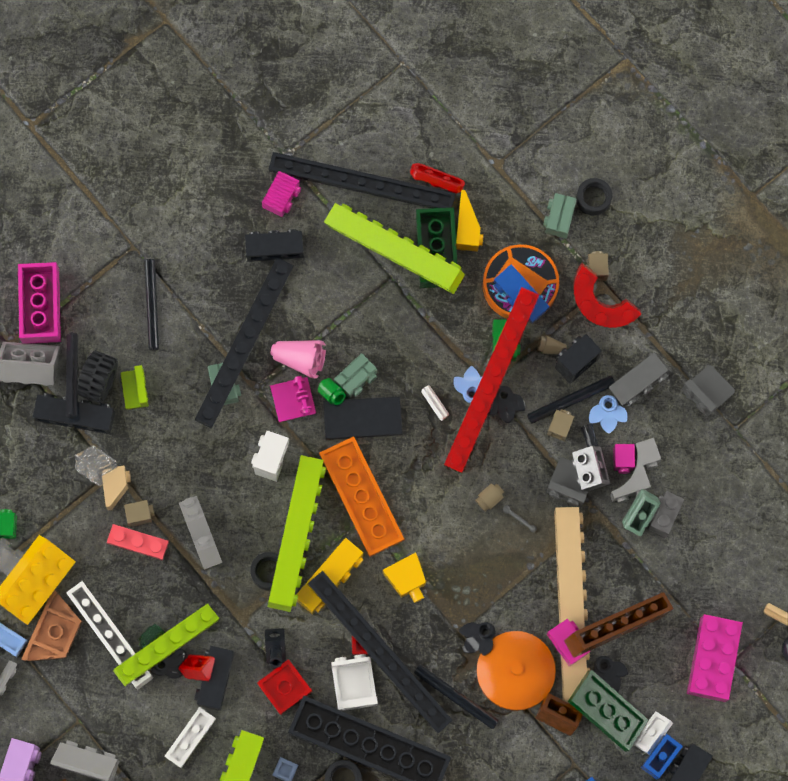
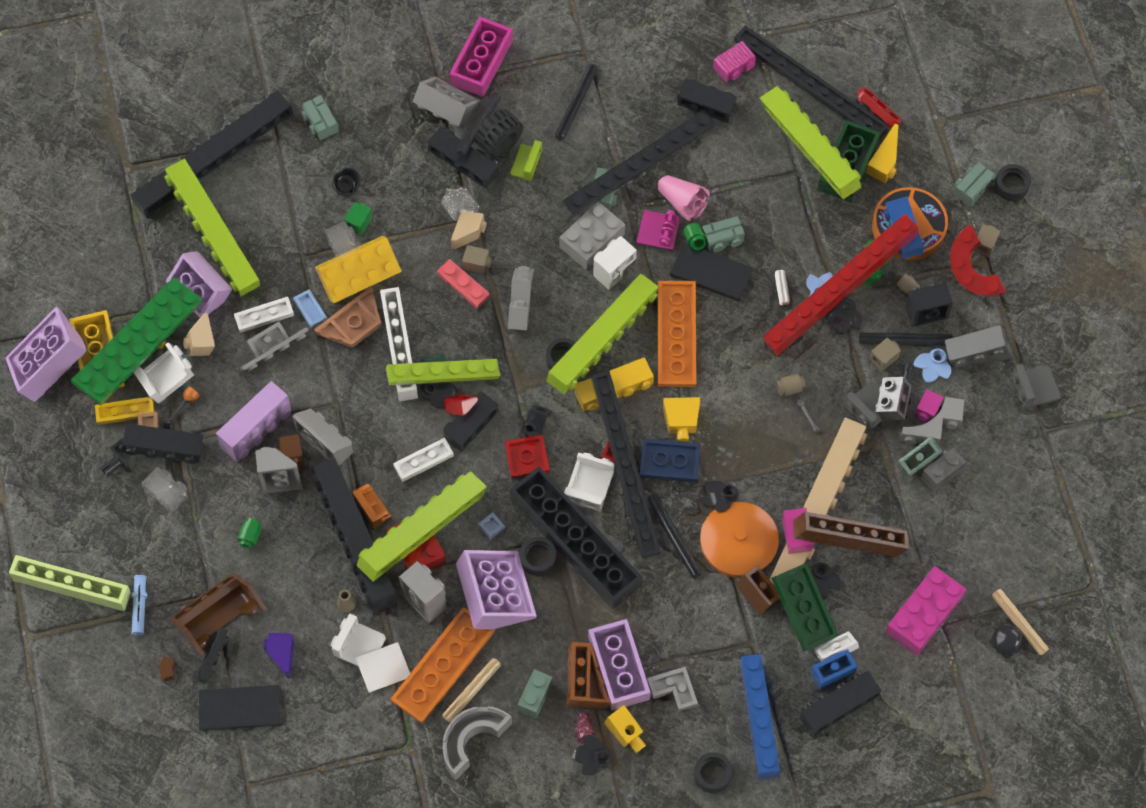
camera: 30 degrees right, 10 degrees down
(235, 436) = (591, 235): none -> light grey brick
(416, 625) = (670, 460): none -> dark blue plate

